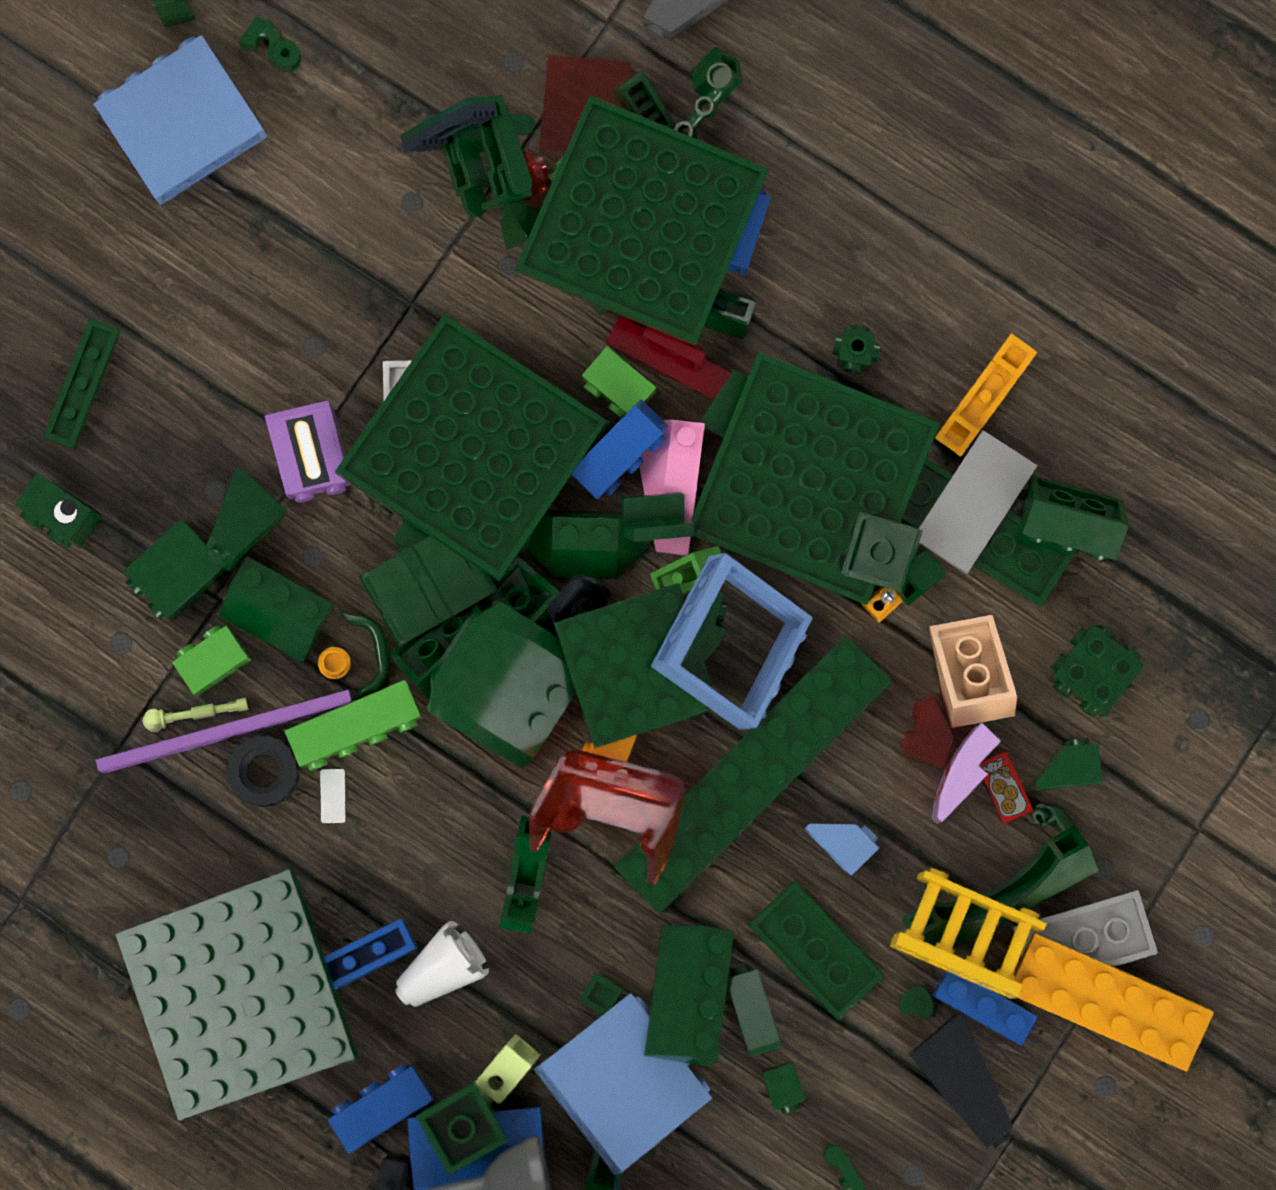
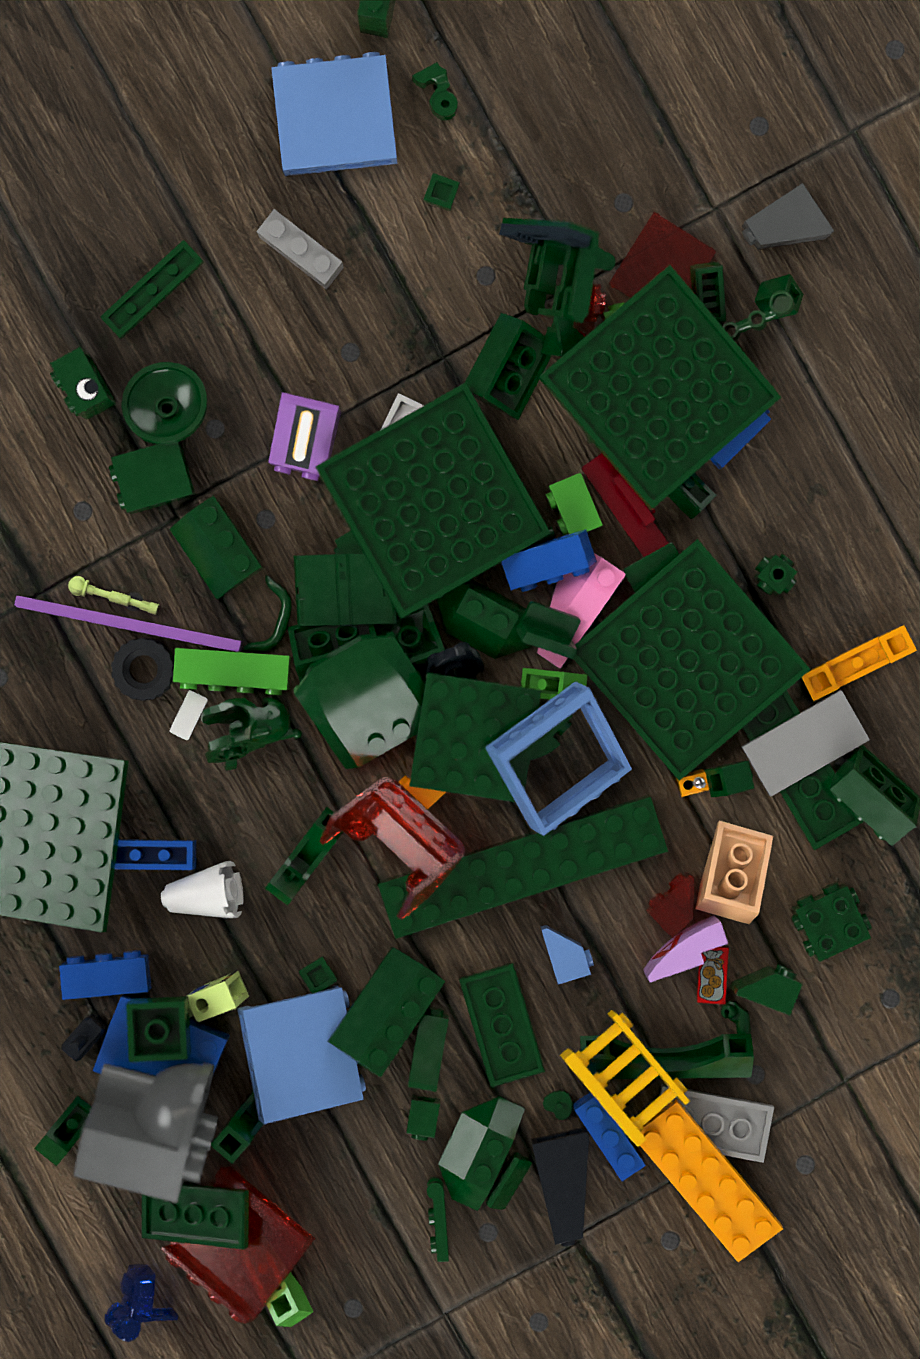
camera: 25 degrees right, 5 degrees up
(137, 480) = (155, 390): none -> dark green dish
(211, 659) = (145, 561): bright green brick -> none
(212, 268) = (300, 249): none -> light grey brick
(243, 520) = (224, 465): dark green slope -> none
(325, 141) = (441, 192): none -> dark green plate
(334, 663) = (241, 612): light orange plate -> none
(402, 780) = (249, 728): none -> dark green helmet
(480, 278) = (508, 366): none -> dark green slope
(858, 1092) = (479, 1149): none -> dark green wedge
(881, 552) = (712, 747): dark green plate -> none
(906, 1109) = (508, 1181): none -> dark green slope

